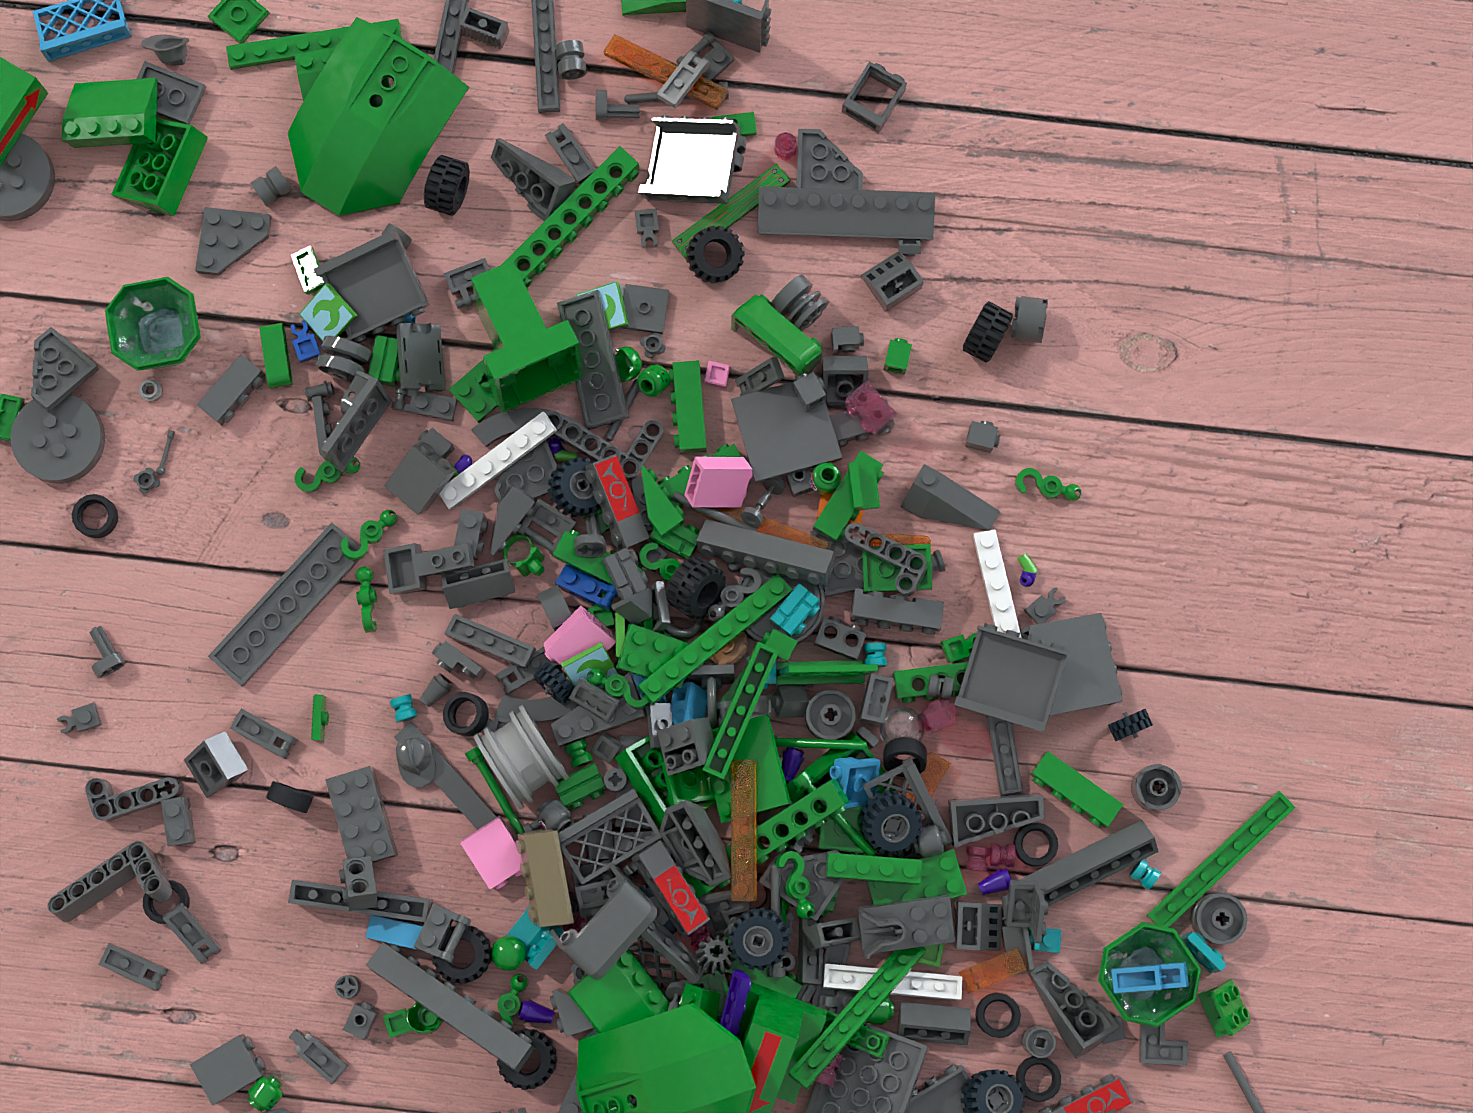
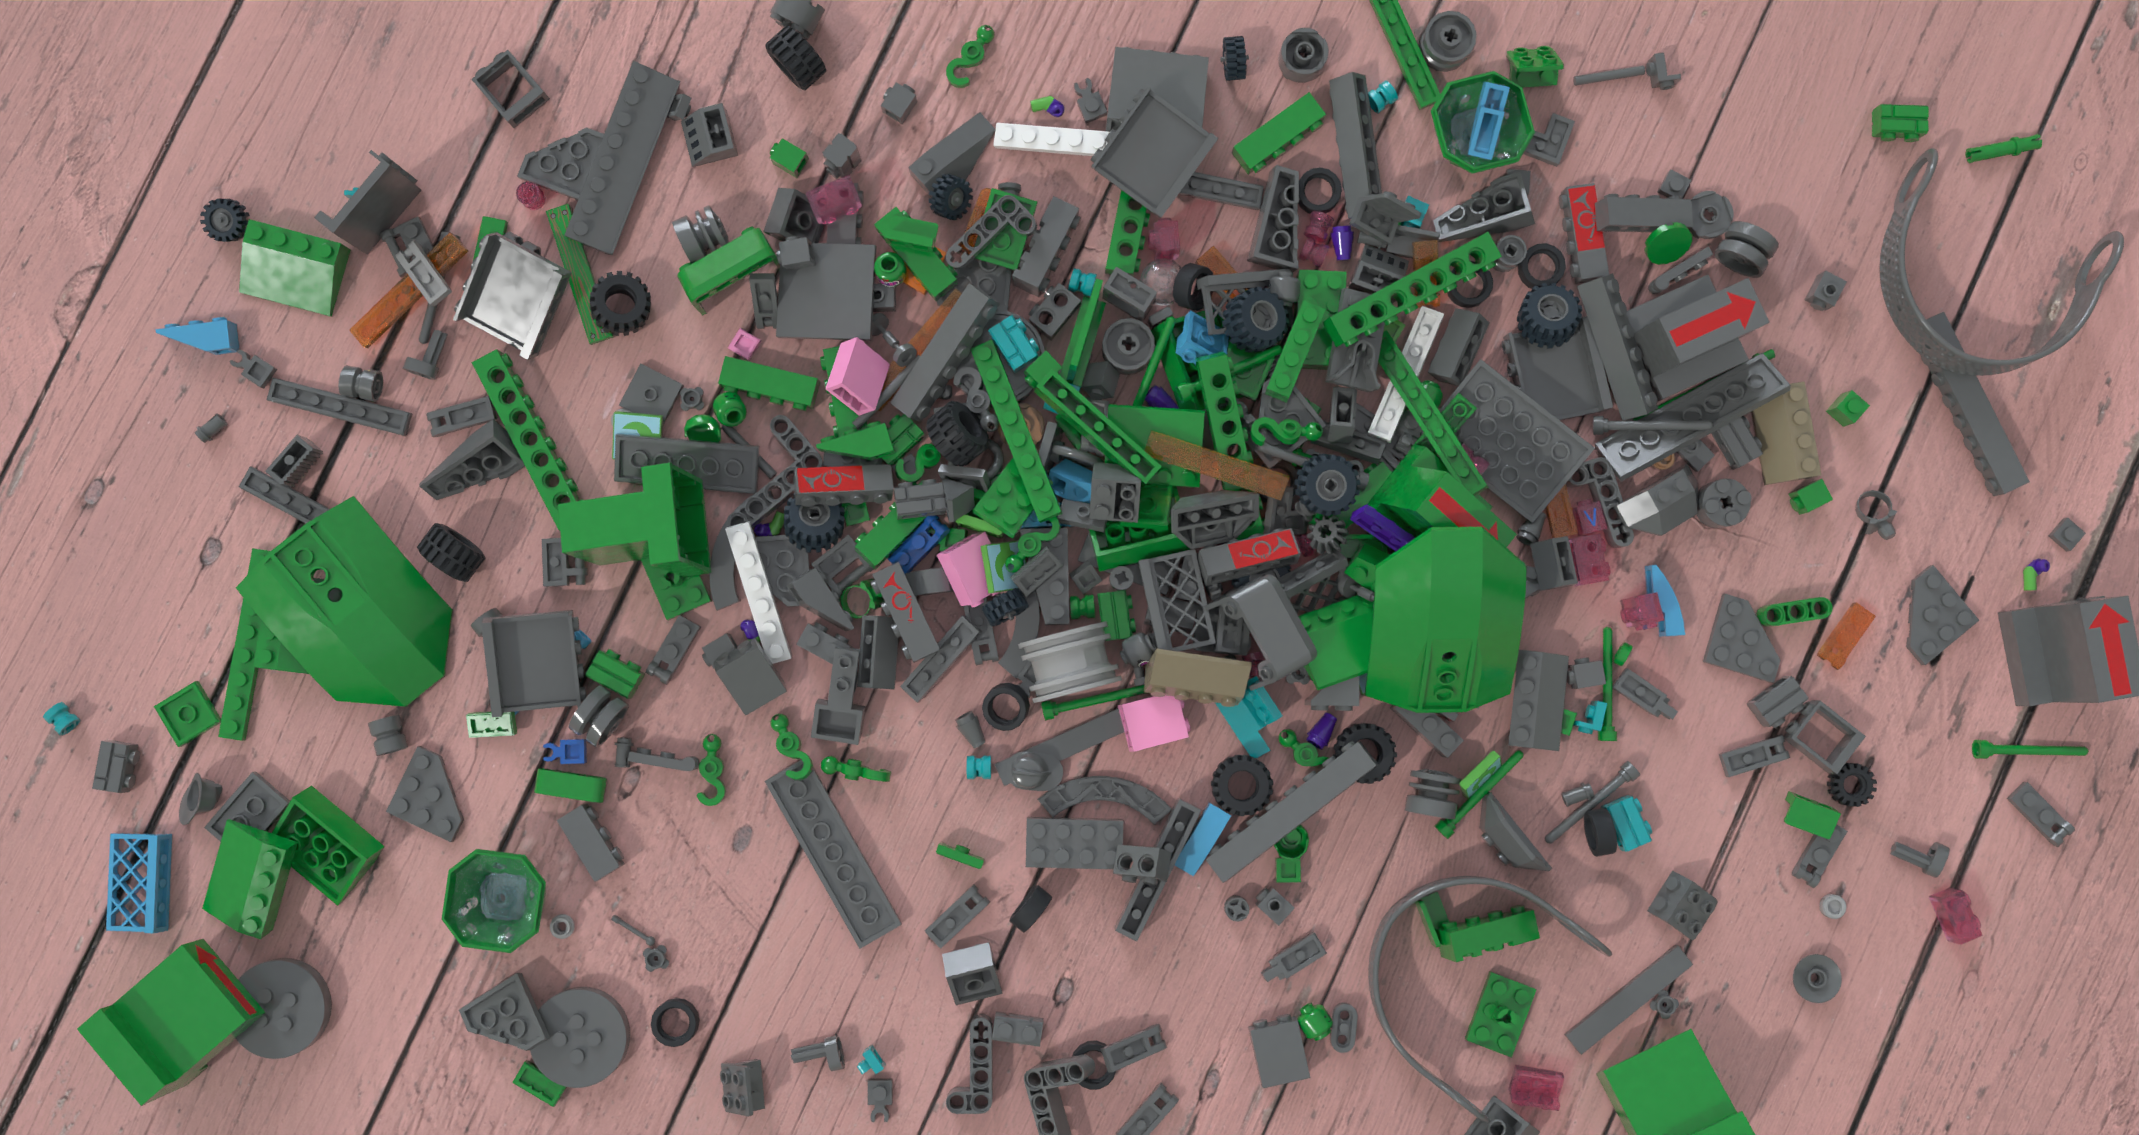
camera: 75 degrees left, 5 degrees up
(54, 594) = (742, 1087): none -> dark grey bracket
(111, 700) = (872, 1060): none -> teal tile
(328, 313) = (544, 718): tile -> none
(359, 419) = (664, 715): dark grey plate -> none
(420, 357) = (623, 637): dark grey piece -> none
(420, 832) = (1106, 789): none -> dark grey tile
(435, 931) = (1212, 802): dark grey plate -> none
(453, 659) = (946, 701): dark grey plate -> none
(508, 953) = (1256, 738): green hair -> none
(520, 595) = (906, 613): none -> dark grey brick
(593, 540) = (877, 522): dark grey piece -> none
(647, 224) = (563, 363): dark grey plate -> none
(846, 339) = (753, 203): dark grey brick -> none
(911, 510) = (950, 197): none -> black wheel
(912, 401) = (841, 156): none -> dark grey brick
(934, 687) = (1137, 227): dark grey wheel -> none
(957, 647) = (1101, 199): green plate -> none
(1032, 1012) = (1481, 249): none -> green brick
(1207, 957) = (1483, 62): teal plate -> none

